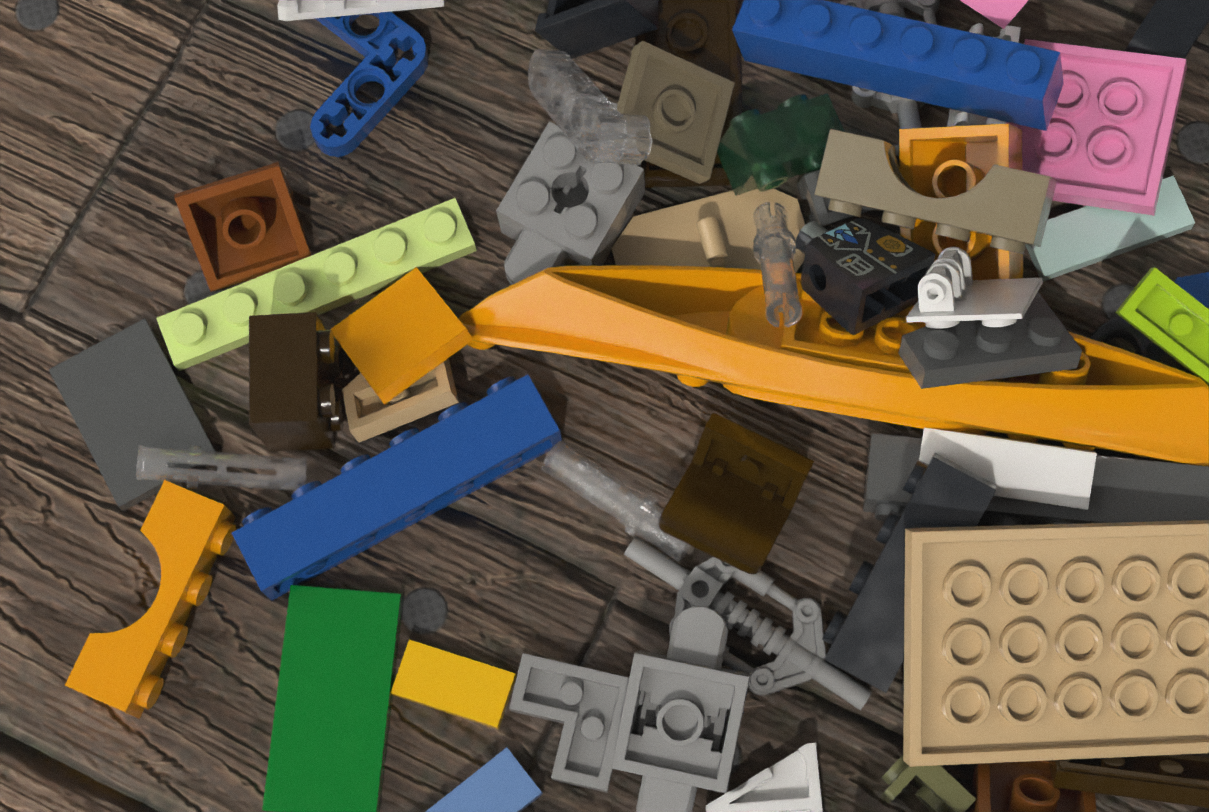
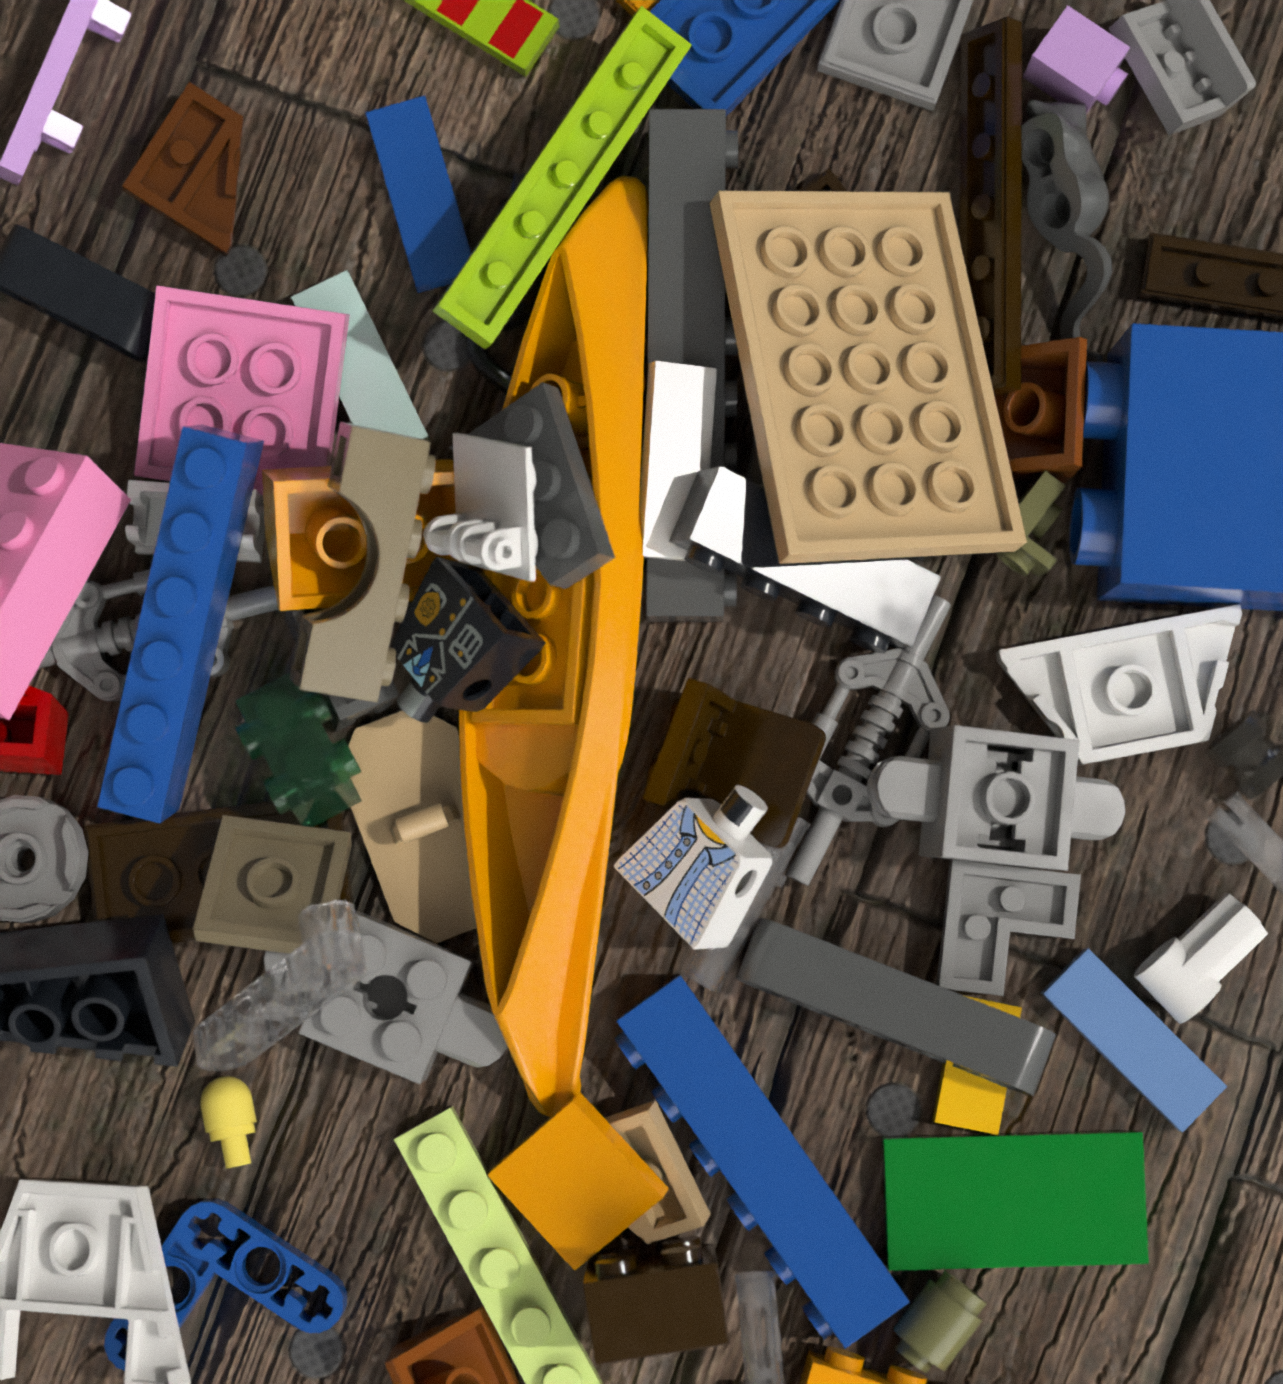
camera: 100 degrees left, 10 degrees up
(240, 621) = (938, 1323): none -> olive brick
(490, 75) = (229, 1117): none -> light yellow cylinder
(509, 615) = (896, 1006): none -> dark grey beam
(648, 455) = (701, 866): none -> torso
(775, 251) = (436, 745): clear pin -> none

